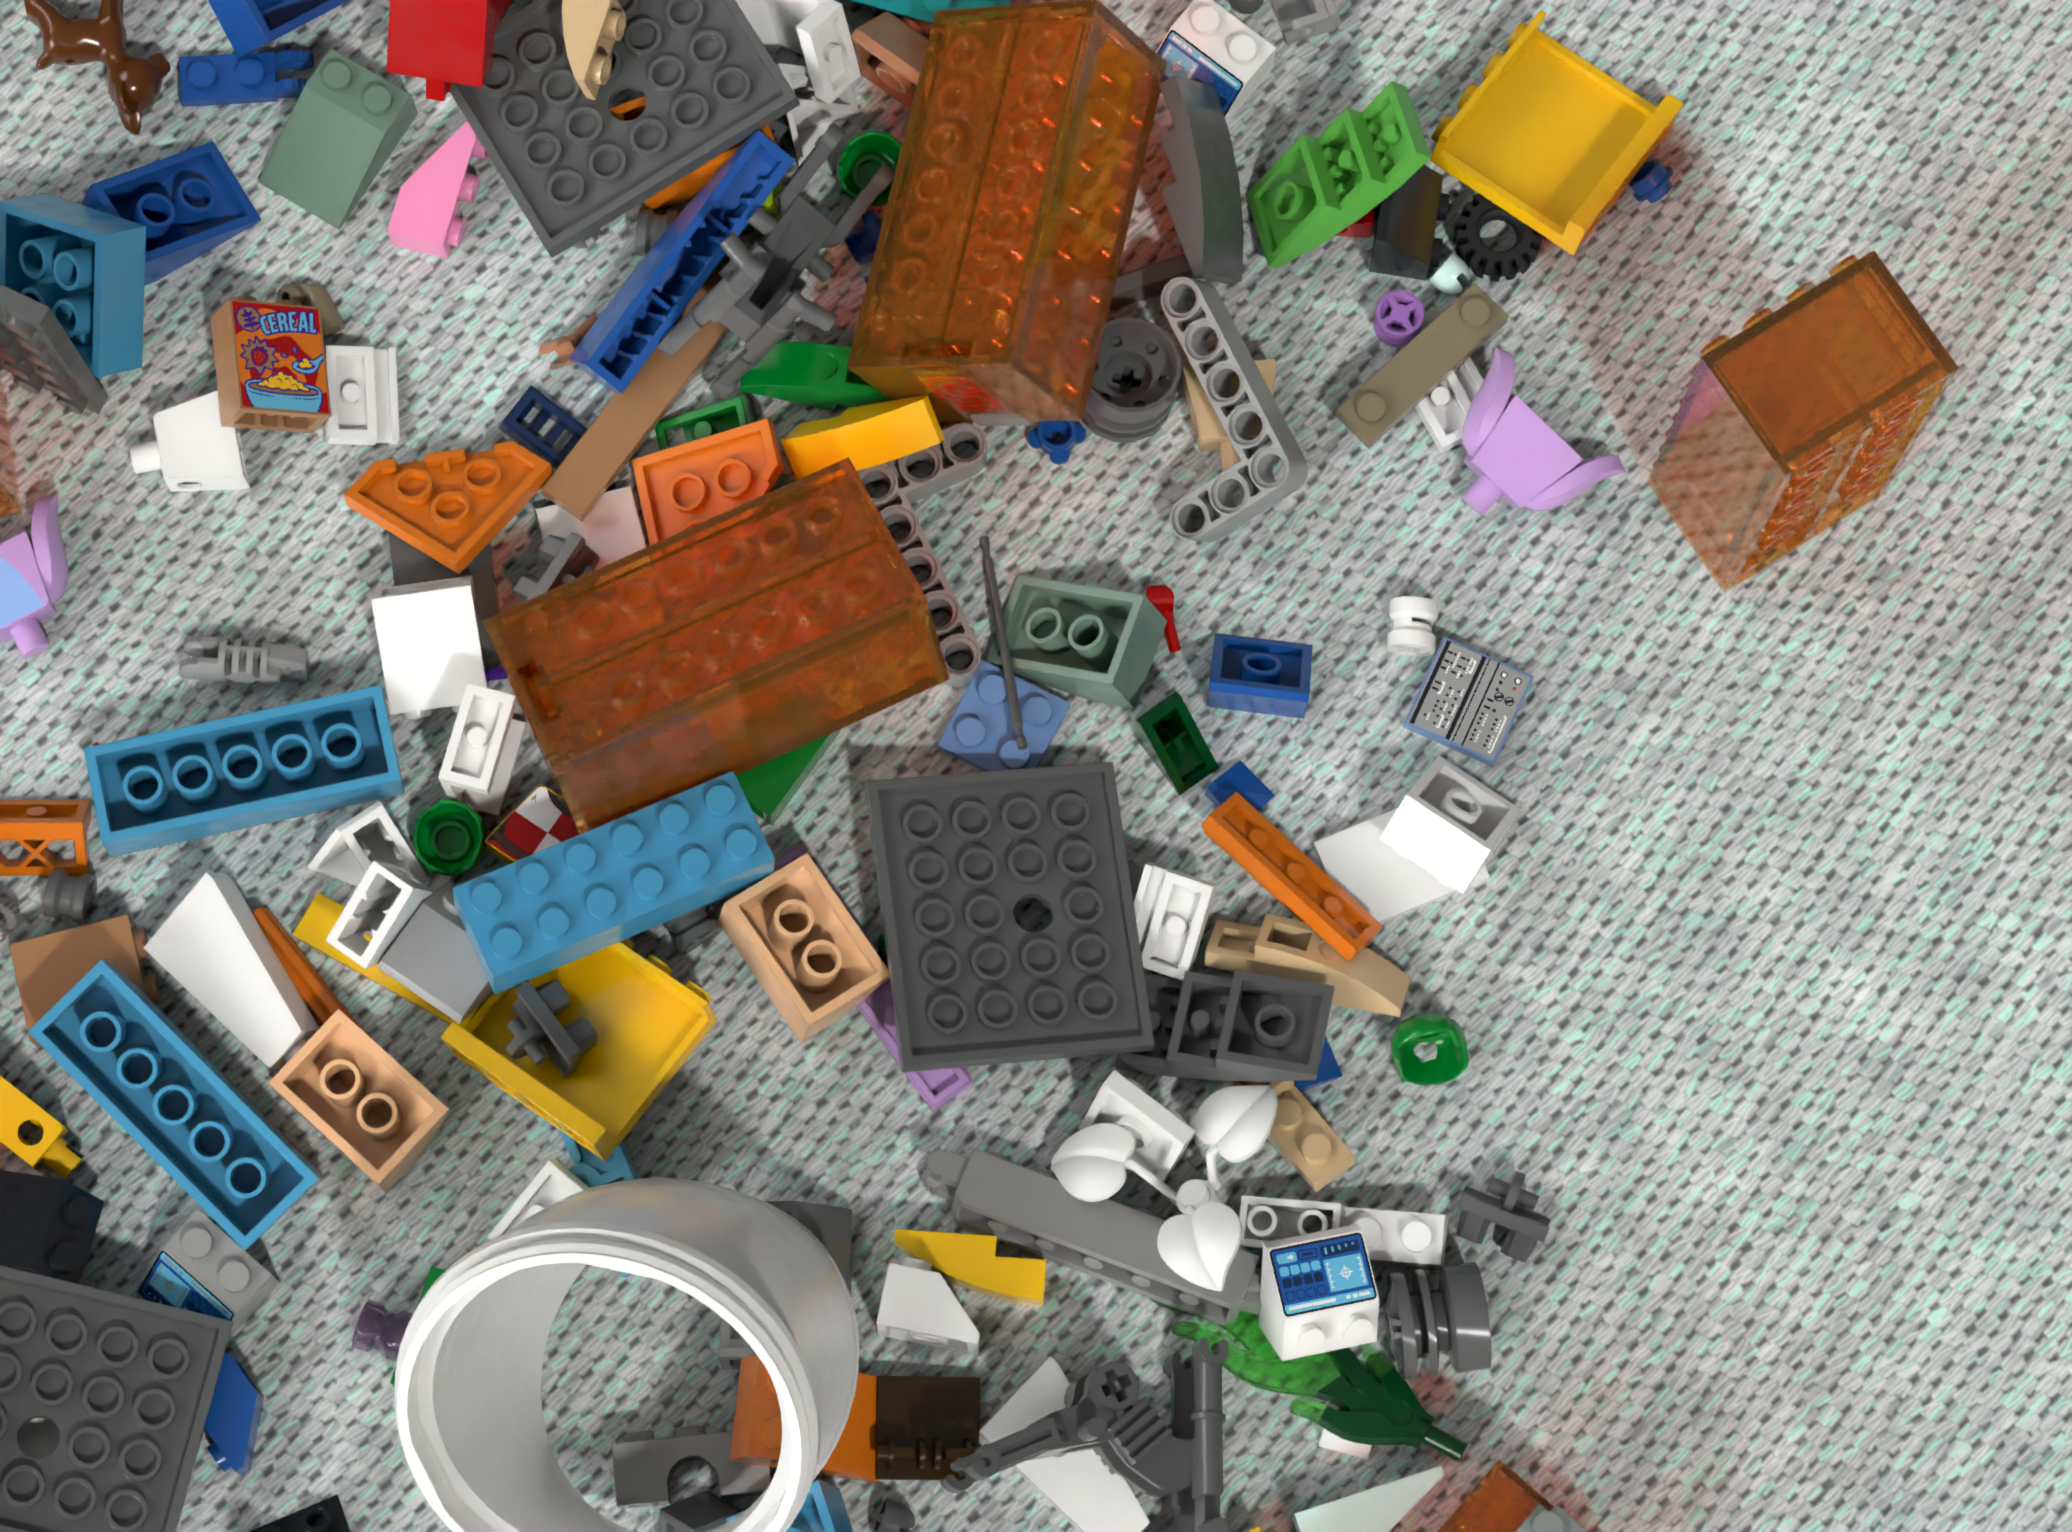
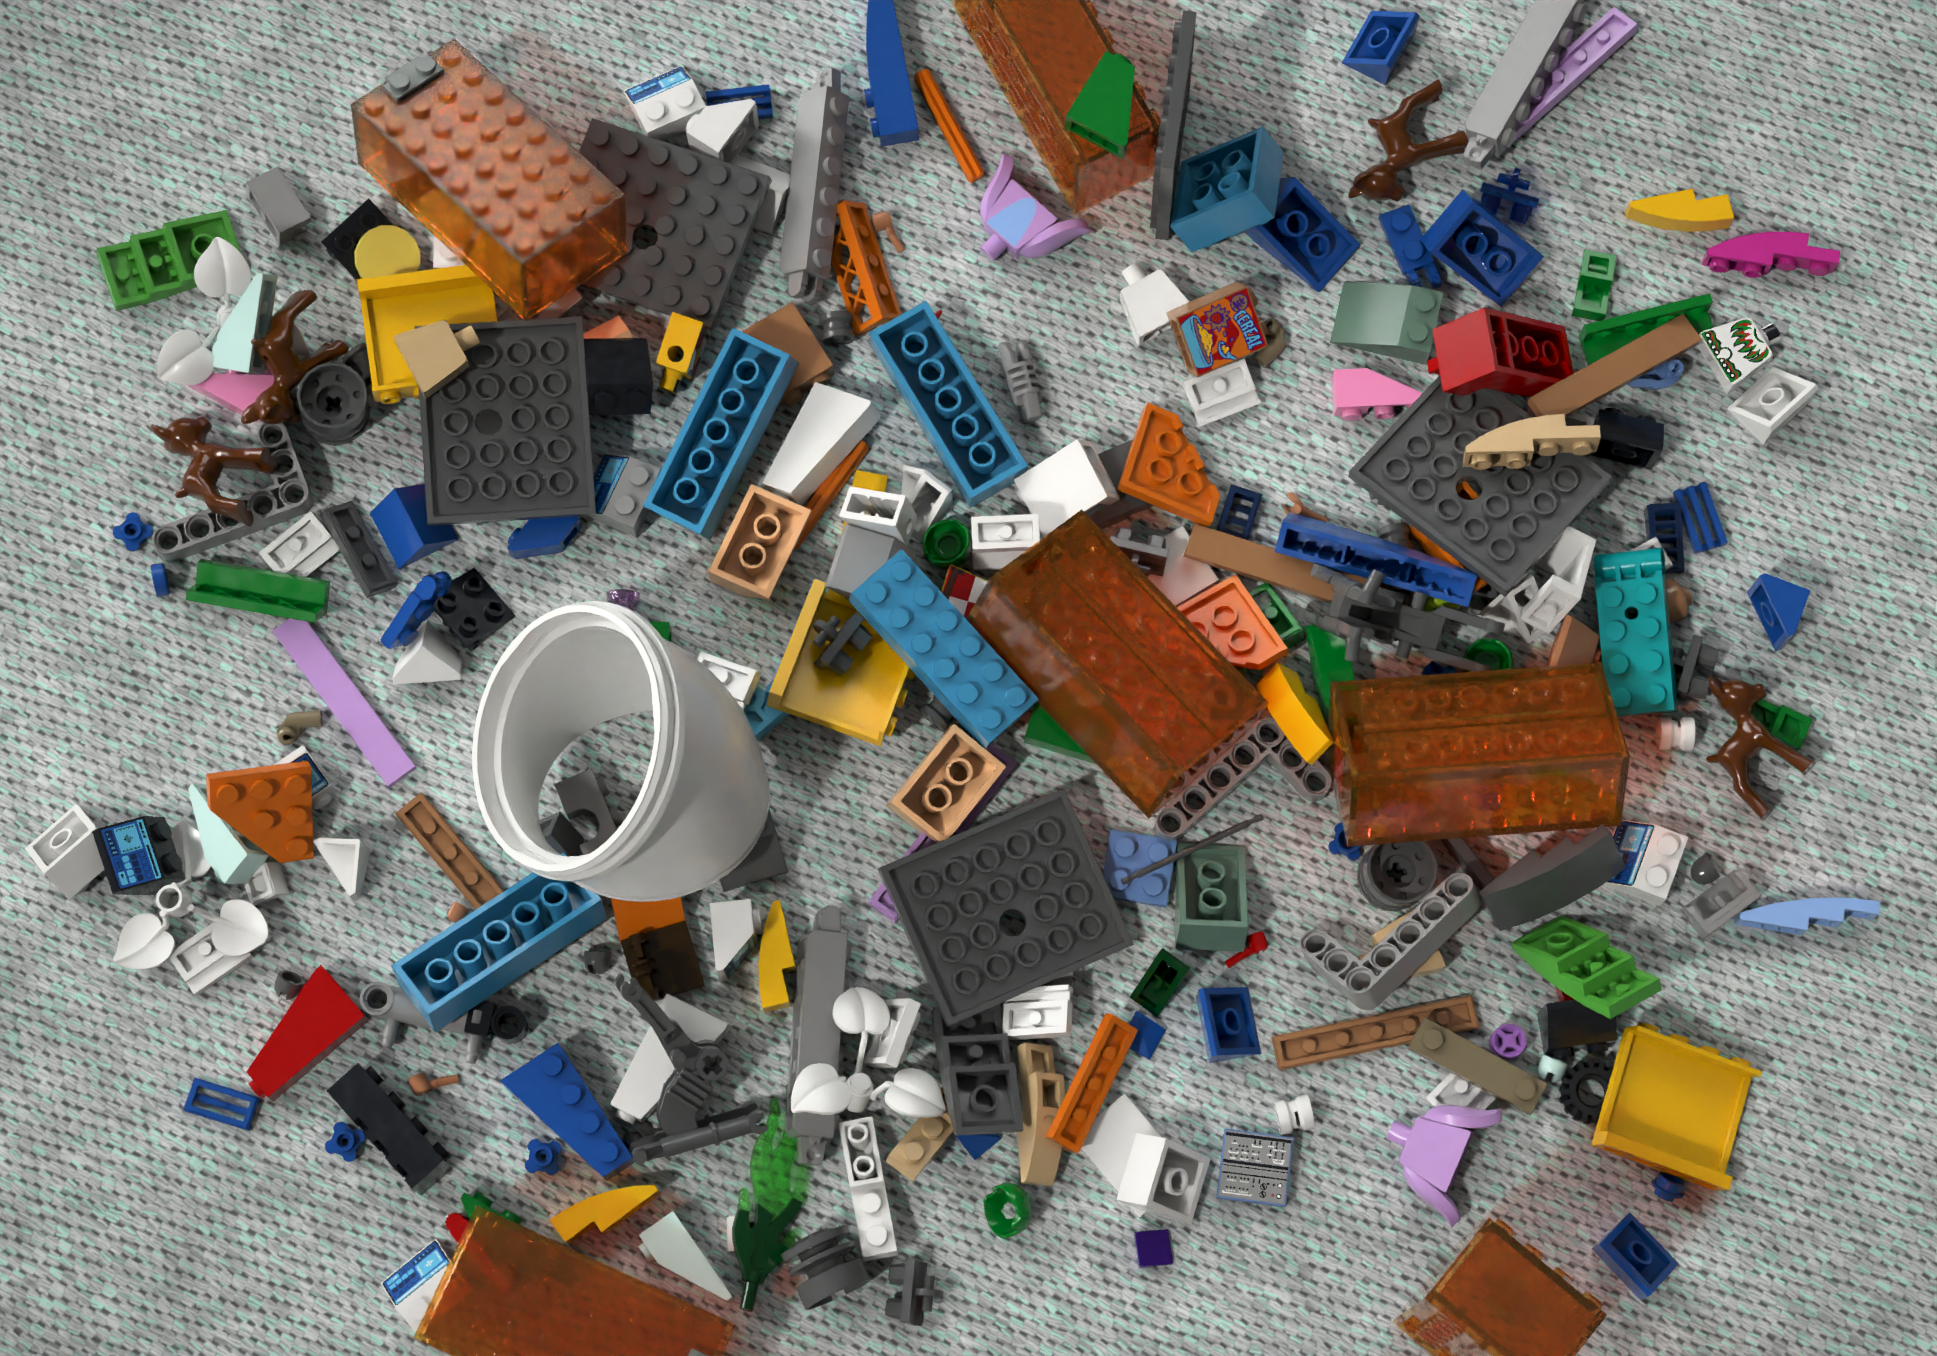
camera: 75 degrees right, 0 degrees up
(1318, 1293) = (819, 1182): slope -> none
(1329, 492) = (1370, 1032): none -> medium nougat tile
(1536, 873) = (1153, 1248): none -> dark purple slope
(1733, 254) = (1635, 1257): none -> blue slope

